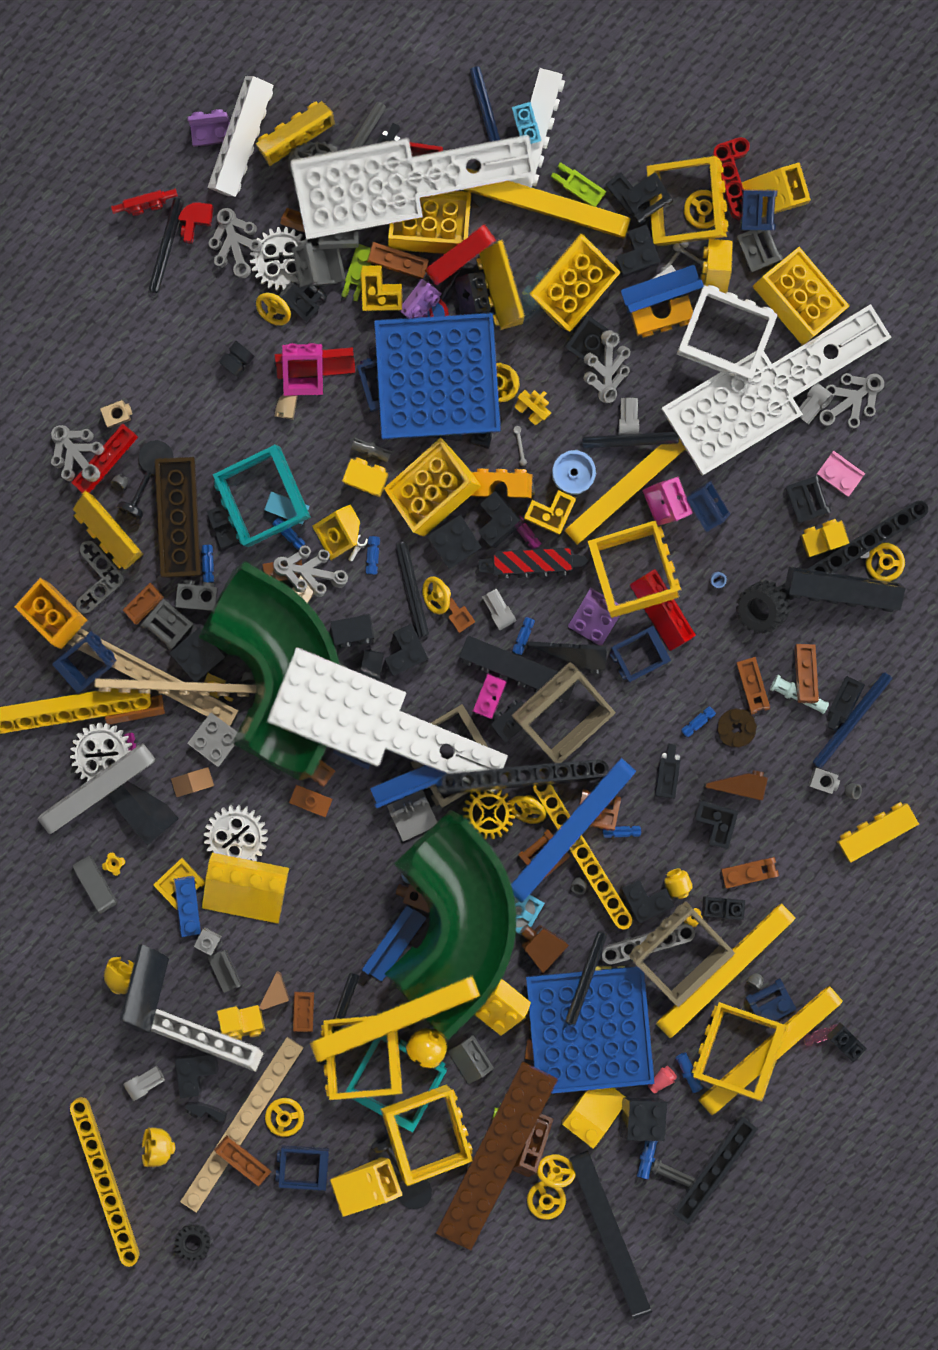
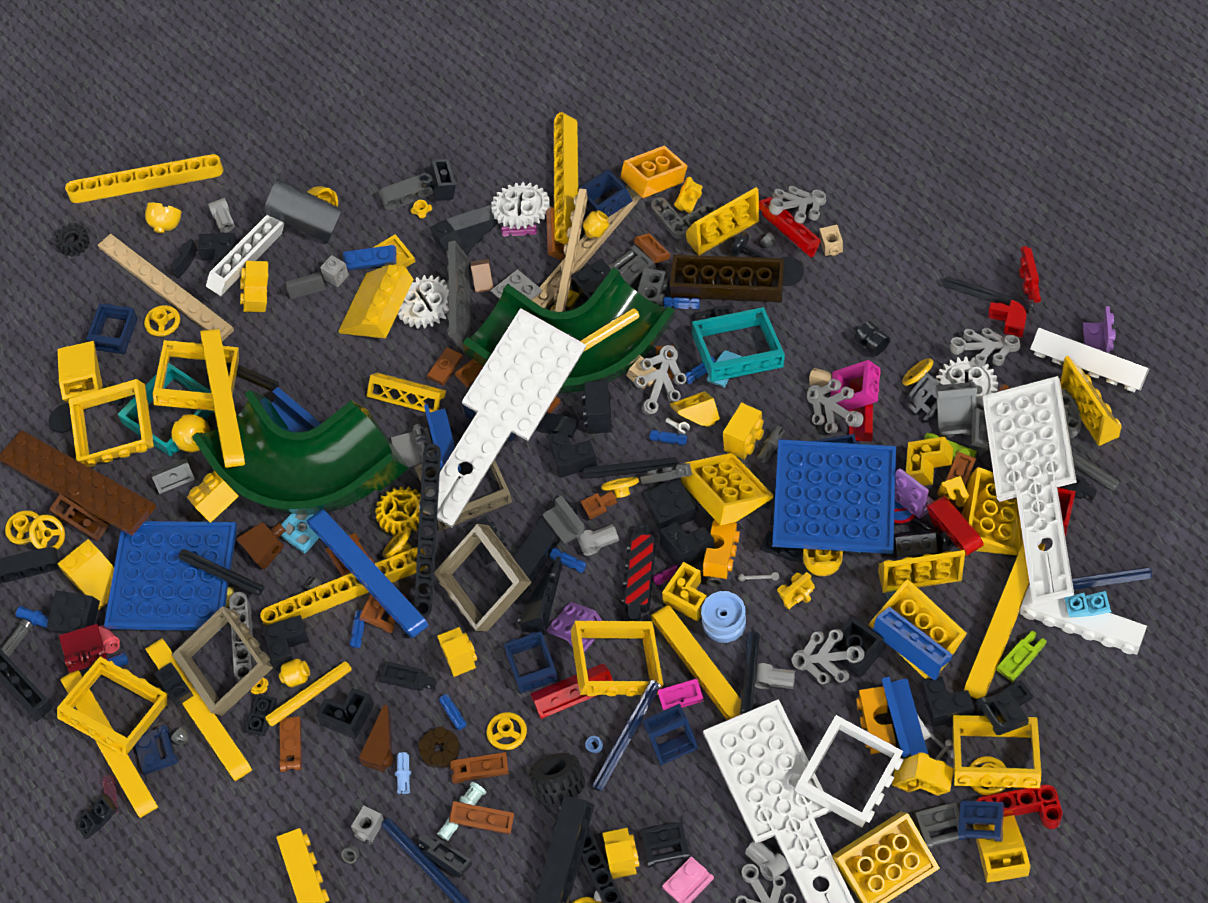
camera: 105 degrees right, 30 degrees down
(72, 572) = (688, 195): none -> yellow hips
(78, 847) = (440, 178): none -> black brick
(96, 788) = (490, 193): light grey beam -> none
(128, 665) = (596, 224): none -> yellow head
(229, 798) = (459, 294): none -> dark grey plate
(242, 1160) = (131, 280): dark orange plate -> none
(266, 631) = (610, 328): none -> yellow axle
(276, 993) = (276, 321): medium nougat slope -> none
(303, 1011) = (253, 342): dark orange plate -> none
(325, 392) = (816, 396): none -> light grey plant
(344, 835) = (406, 386): none -> yellow fence
(417, 260) = (954, 490): none -> yellow hinge
(425, 549) = (668, 473): none -> dark grey hinge
(491, 644) = (564, 521): none -> dark grey panel
(491, 687) = (519, 516): dark pink window -> none
(591, 286) = (911, 642): none -> blue panel
(637, 728) = (458, 651): none -> yellow brick
(682, 1097) = (82, 648): none -> dark red hinge
(698, 865) = (308, 693): none -> yellow axle
(709, 548) = (626, 735): none -> dark blue axle
(710, 997) = (173, 684): none -> black slope
(720, 678) = (505, 722): none -> yellow piece
(767, 757) = (403, 773): none -> light blue axle

